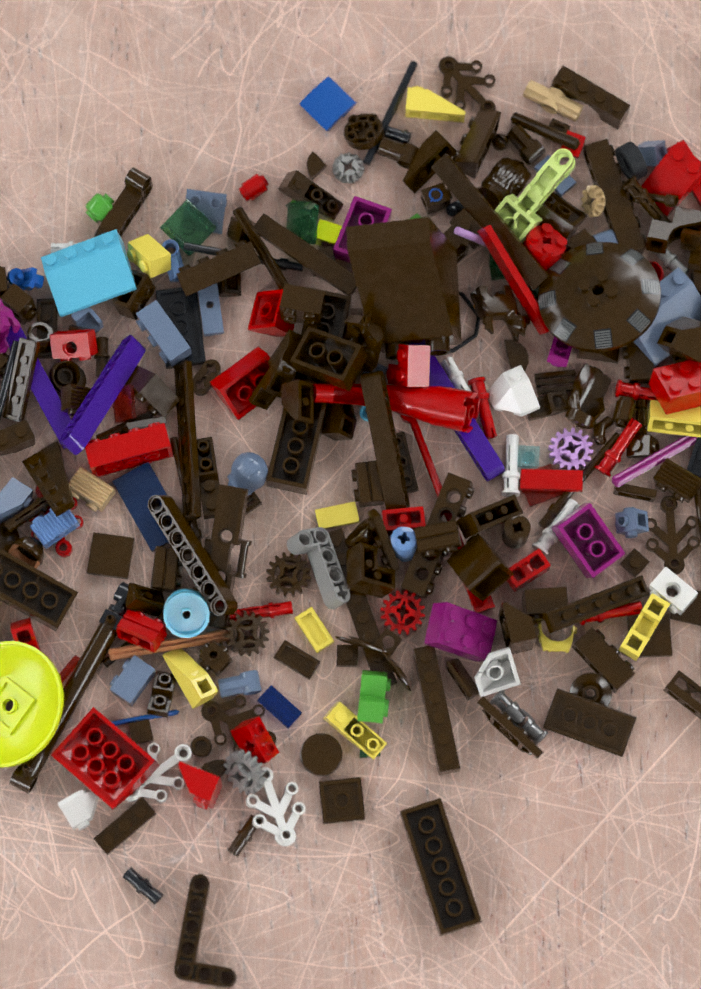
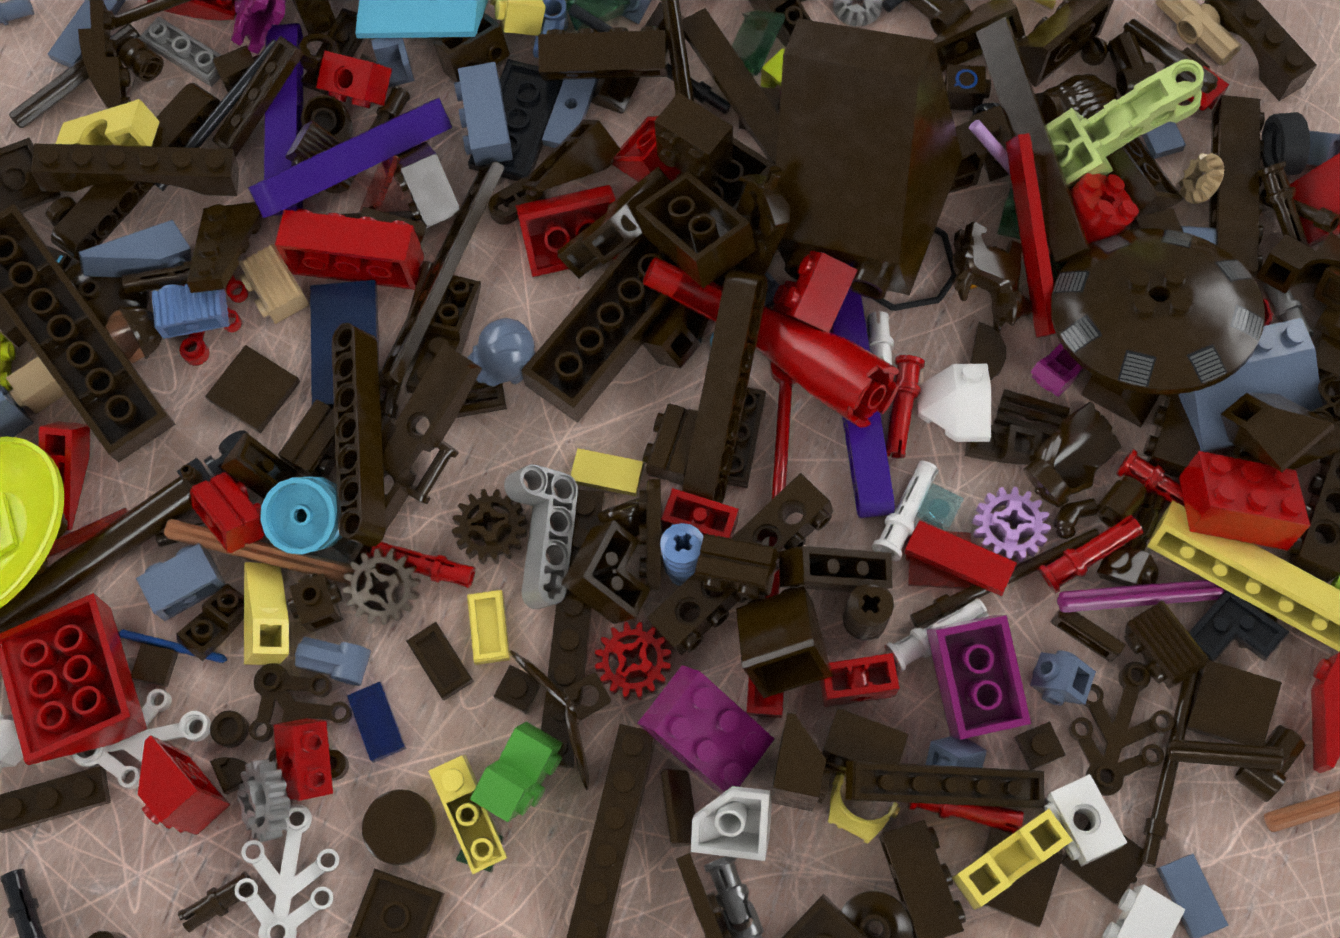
camera: 30 degrees right, 5 degrees down
(230, 339) = (580, 154): none -> dark brown slope
(299, 400) = (622, 271): dark brown slope -> none
(593, 585) = (955, 752): none -> sand blue panel

